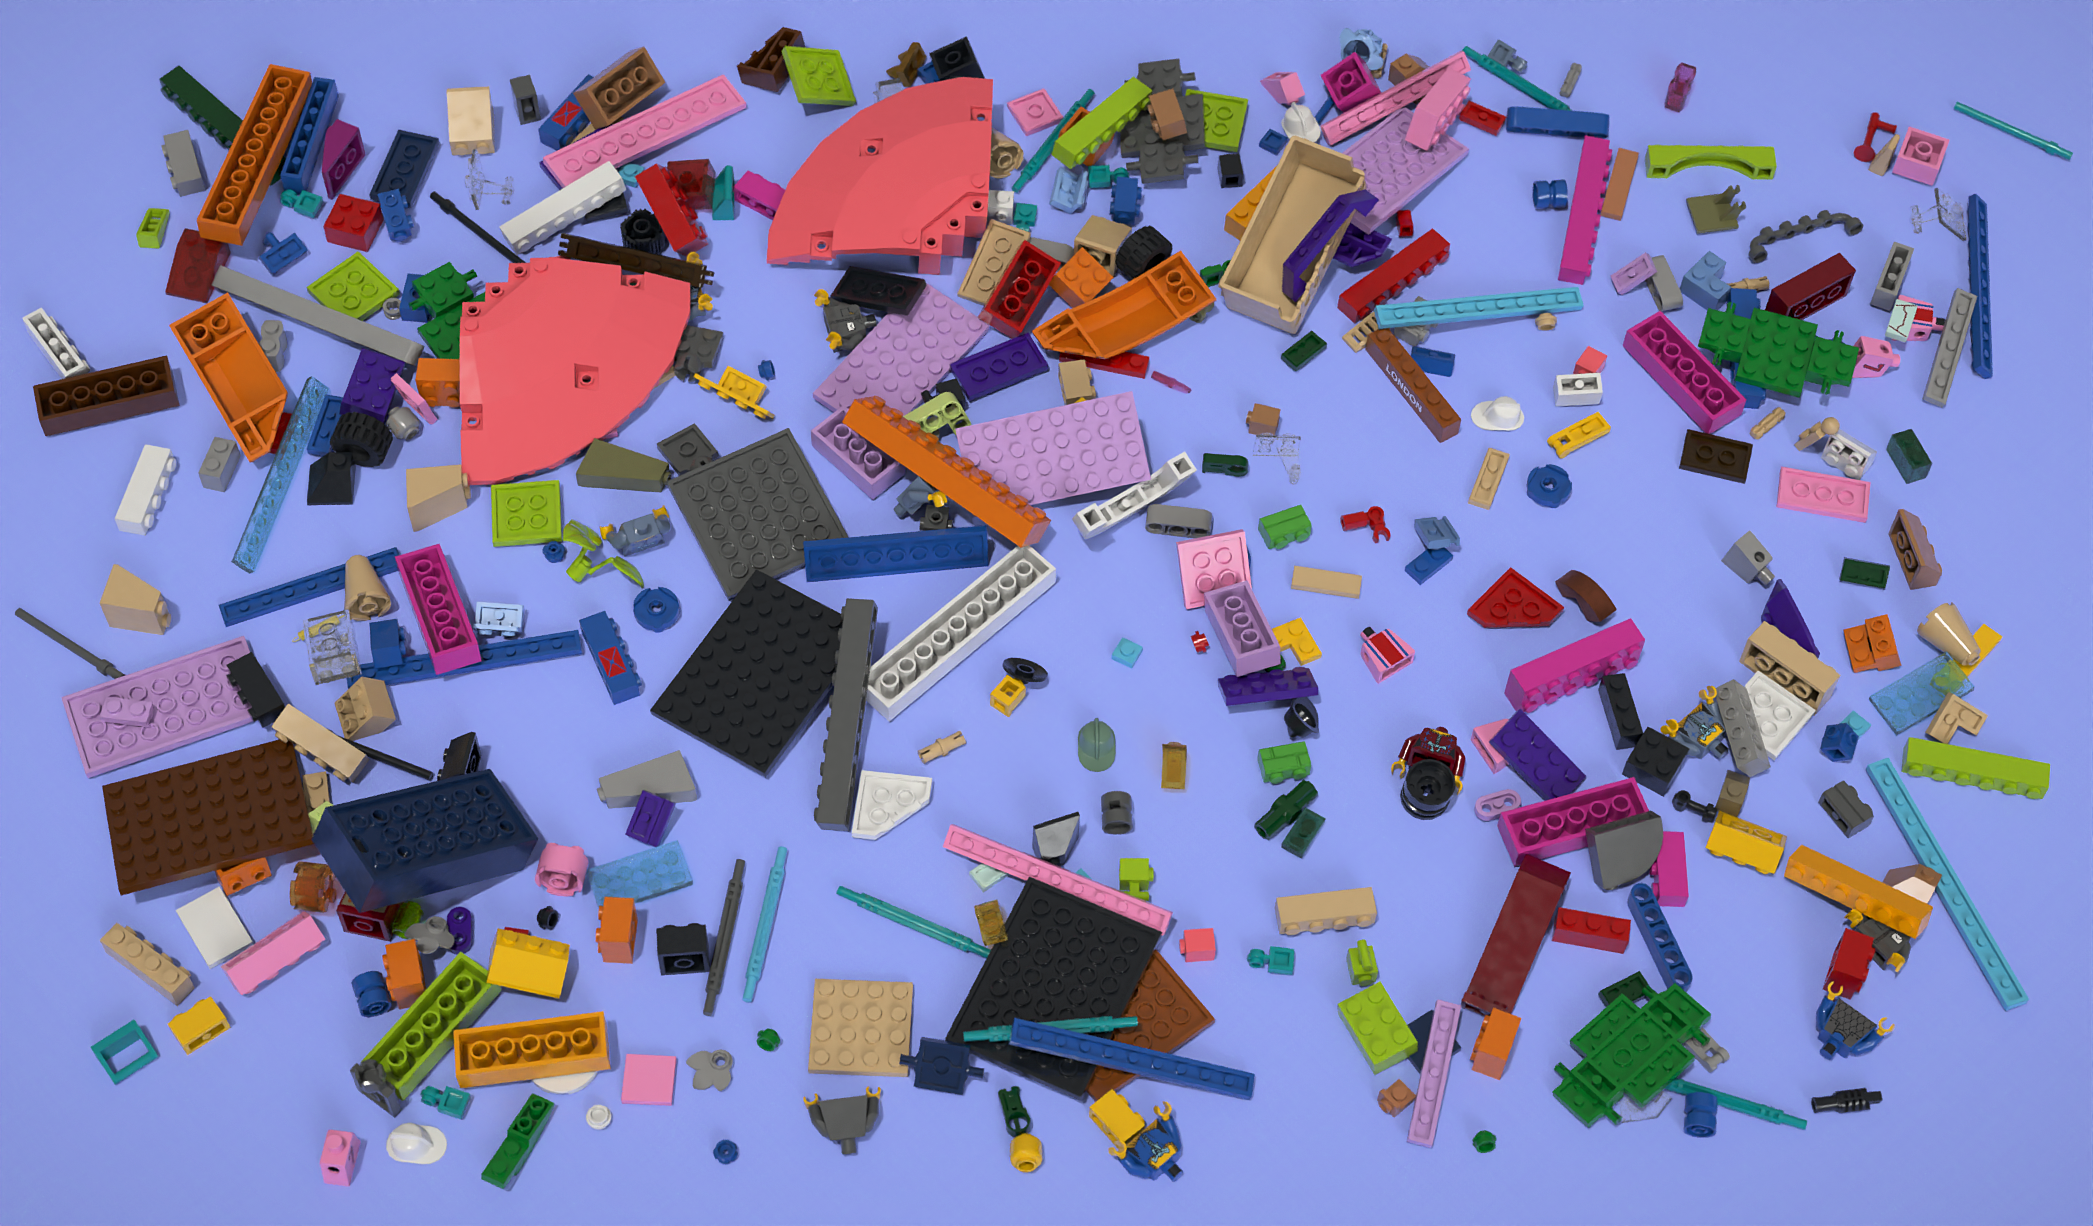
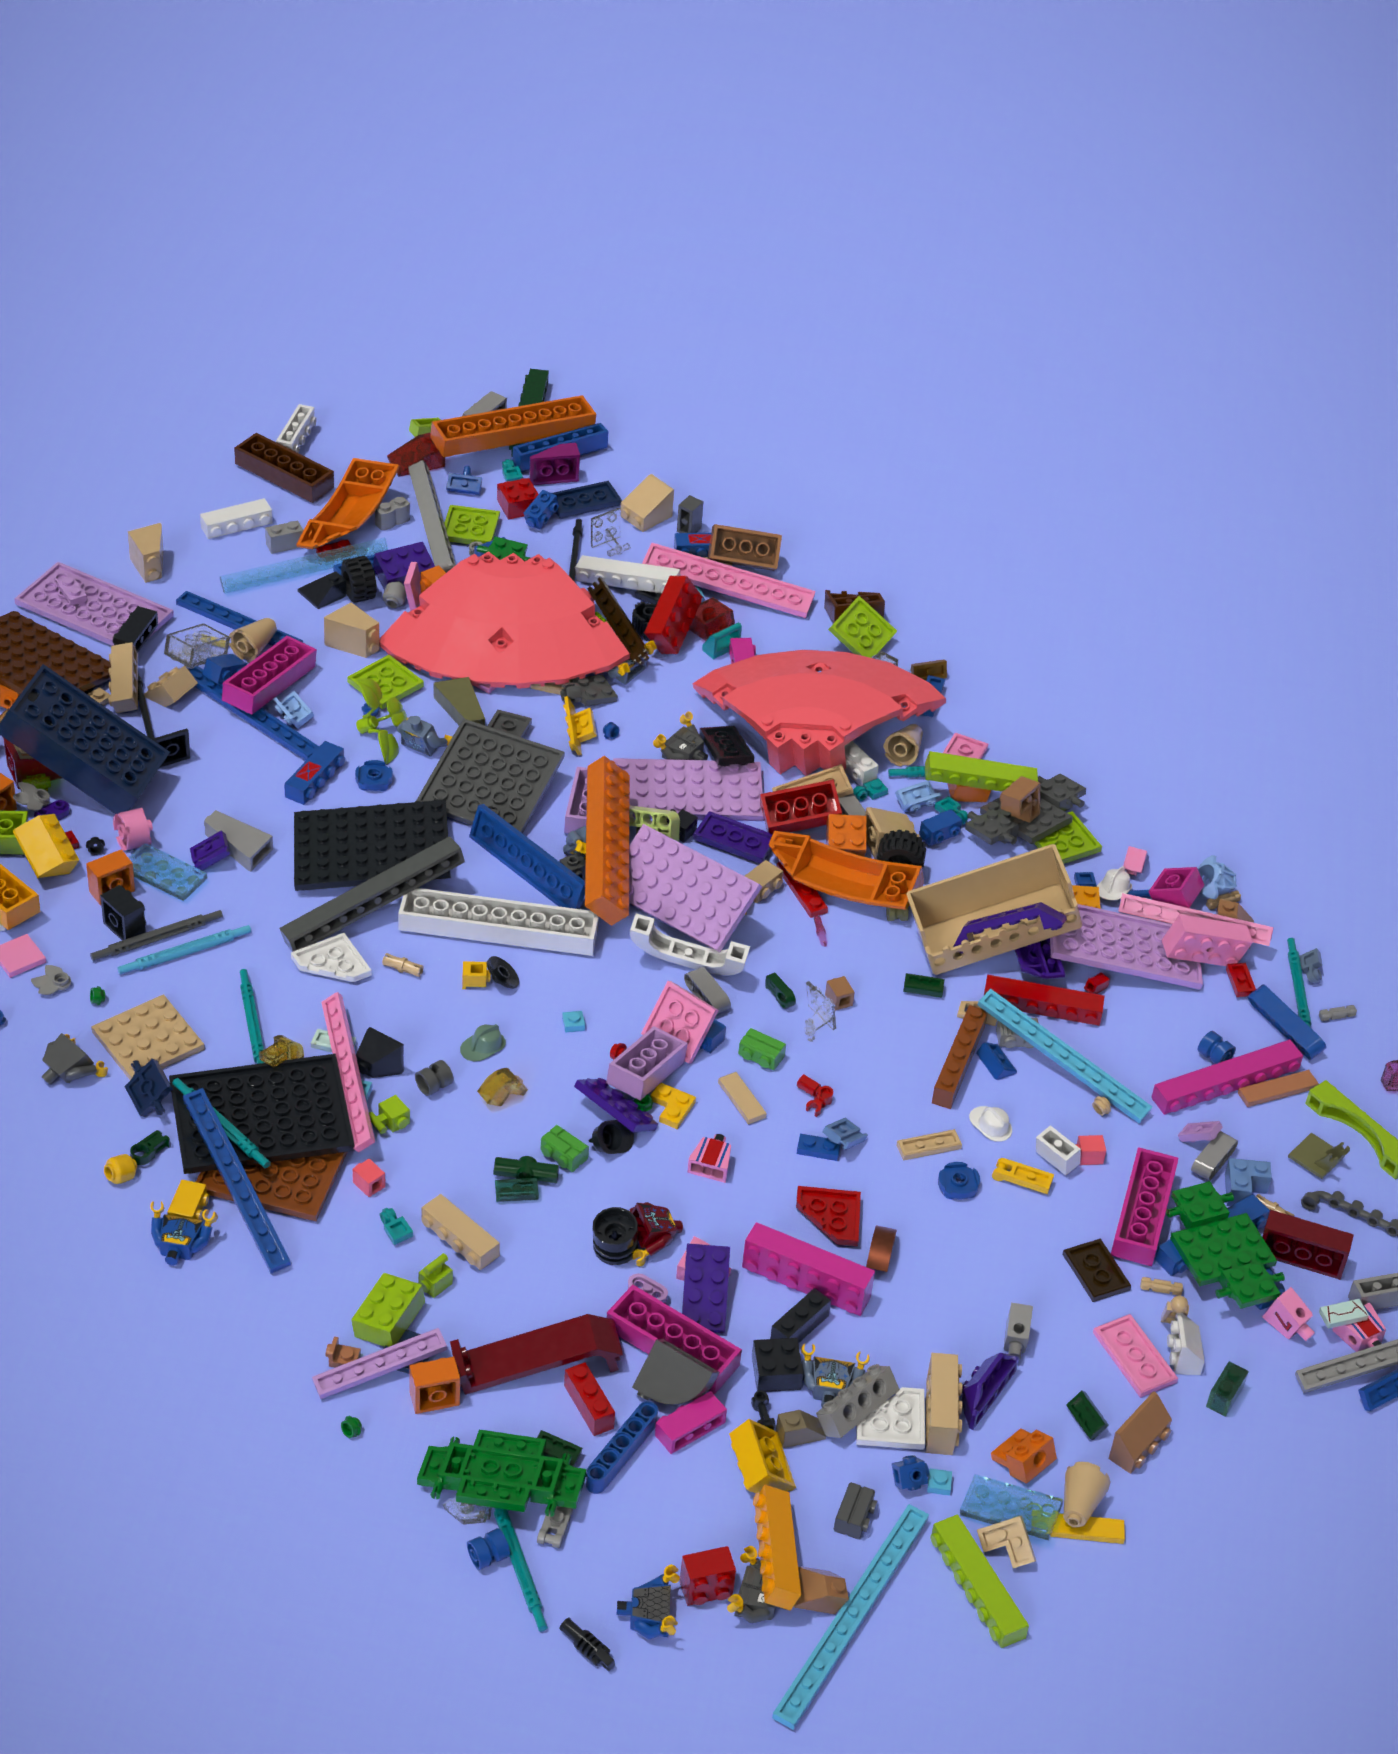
camera: 50 degrees right, 15 degrees down
(102, 666) = (97, 567): dark grey bar -> none
(956, 61) = (956, 689): black slope -> none

